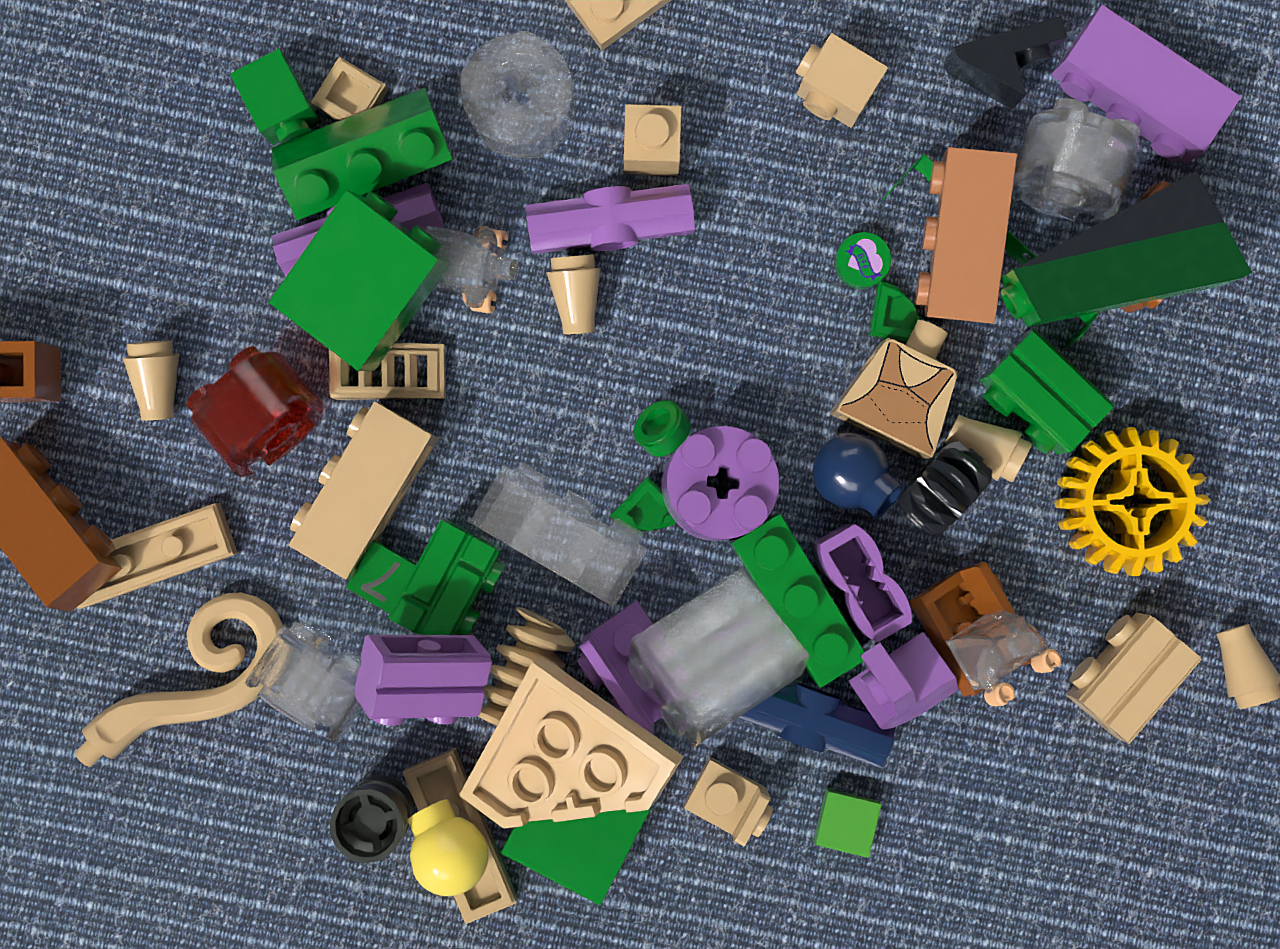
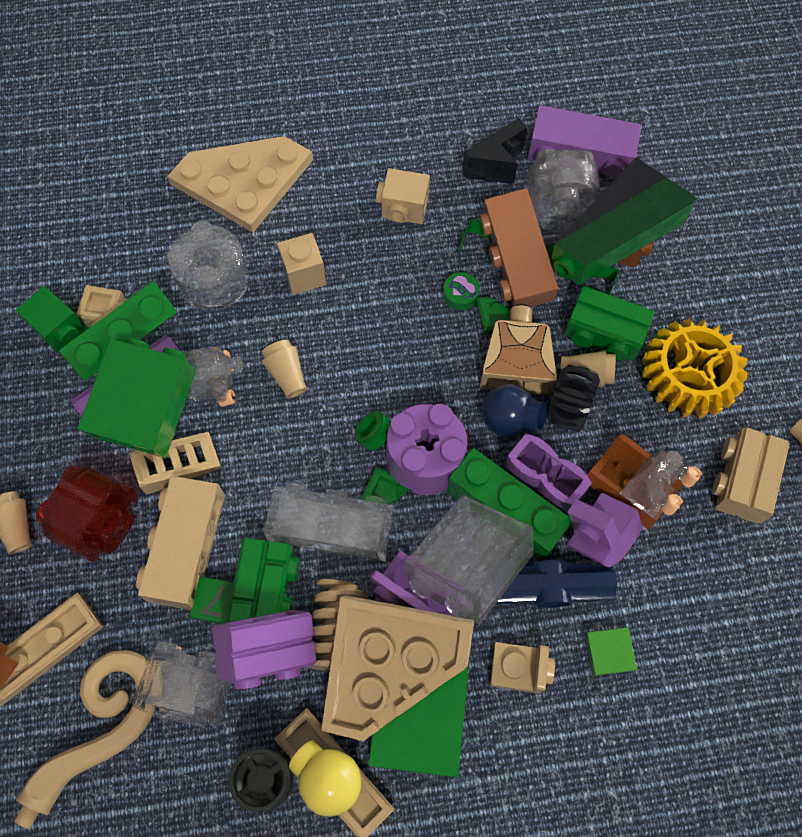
camera: 20 degrees left, 20 degrees down
(610, 218) = (292, 317): medium lavender piece -> none

